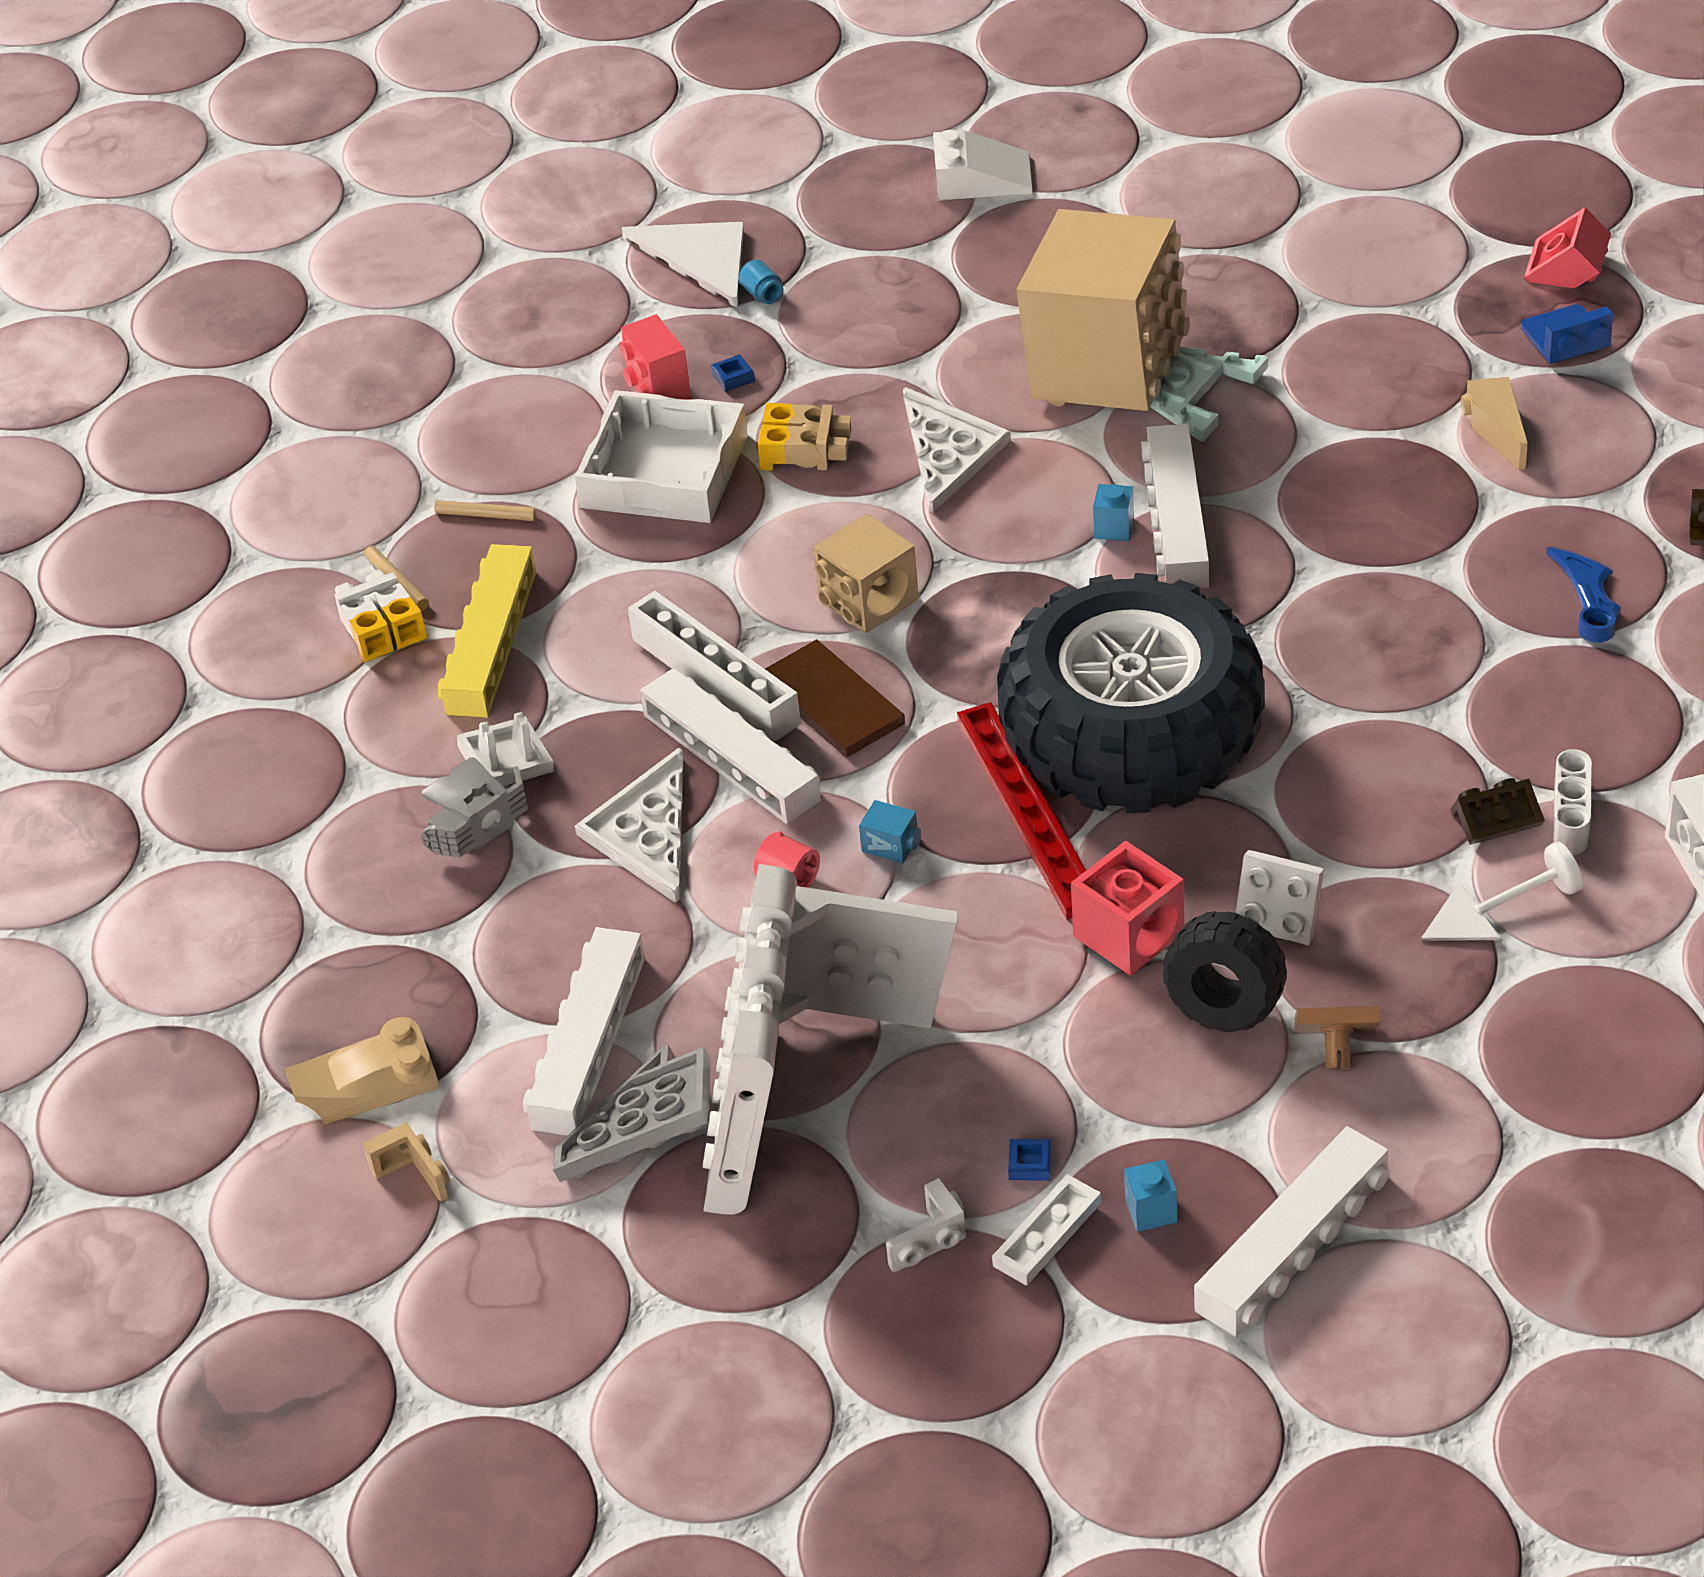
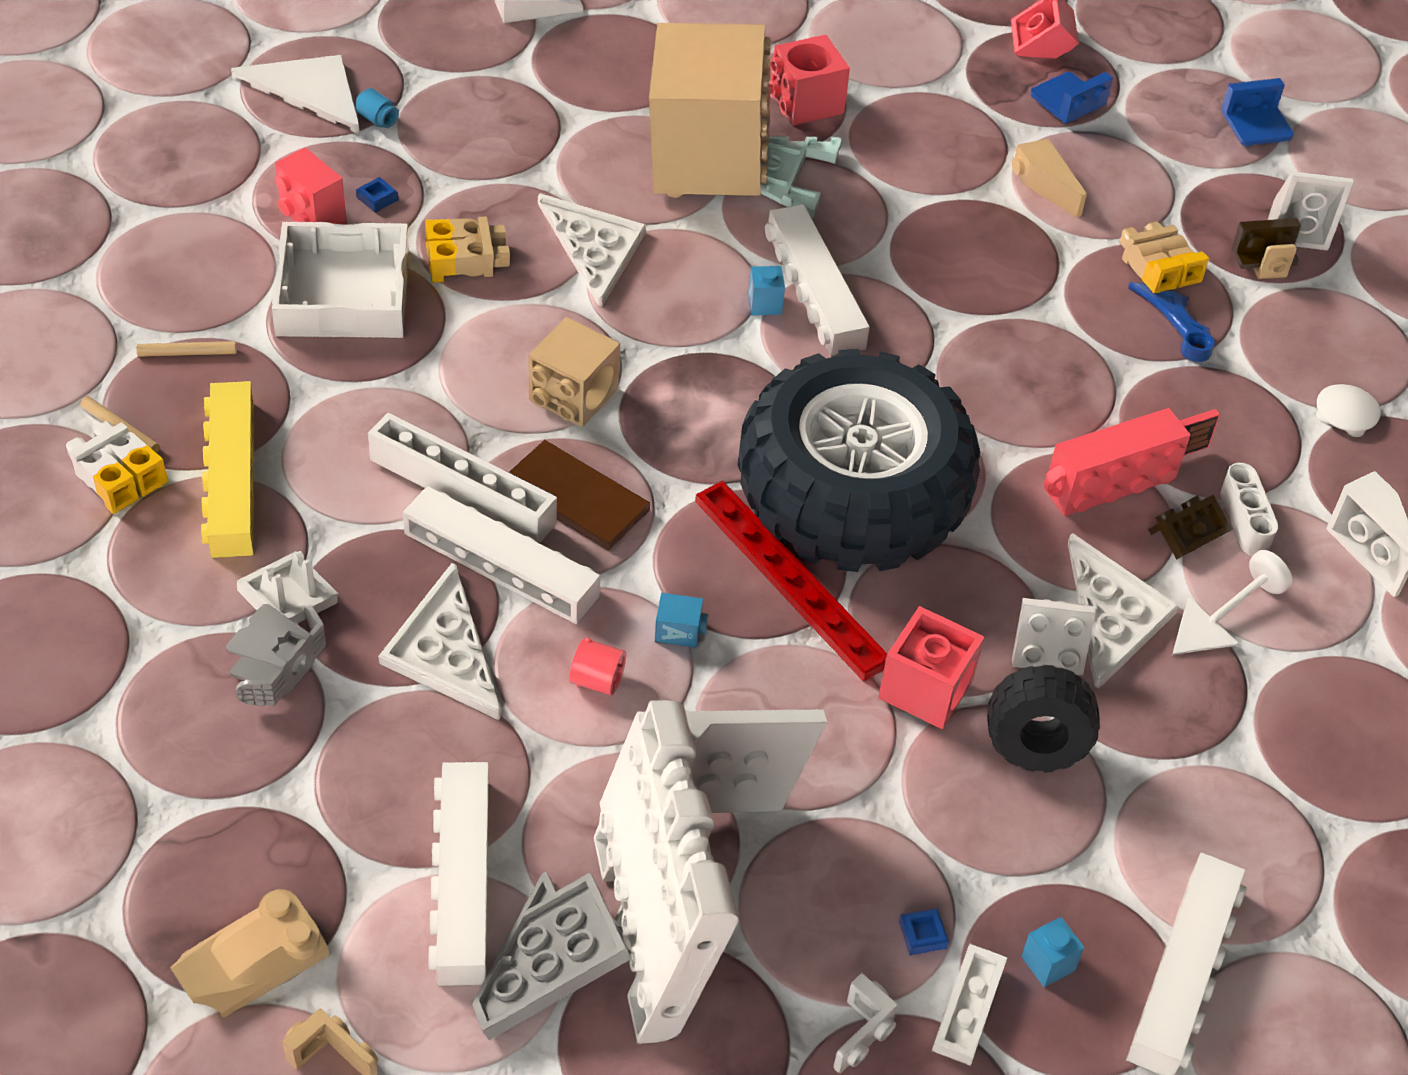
camera: 25 degrees left, 5 degrees up
(1249, 288) = (809, 79): none -> coral brick
(1337, 1025) = (1150, 754): medium nougat tile -> none
(1374, 886) = (1125, 608): none -> white tile
(1444, 729) = (1124, 458): none -> coral piece
(1595, 519) = (1161, 255): none -> hips

